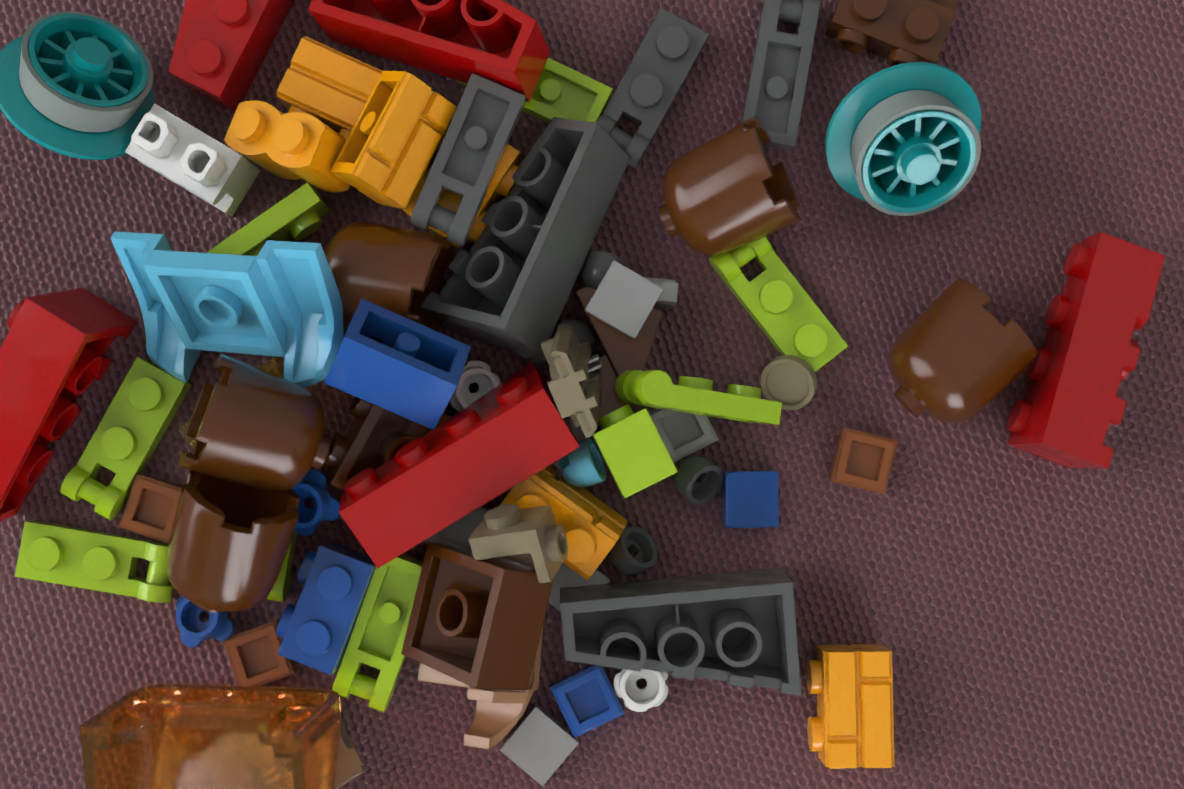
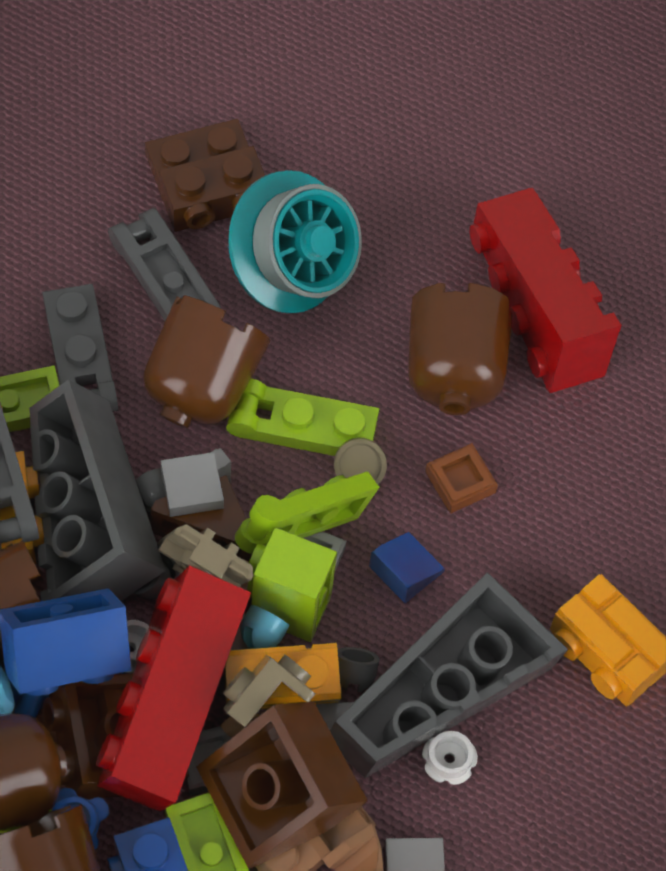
camera: 45 degrees left, 25 degrees down
(587, 699) = (419, 804): blue tile -> none
(690, 486) = (367, 577): dark grey hinge -> none

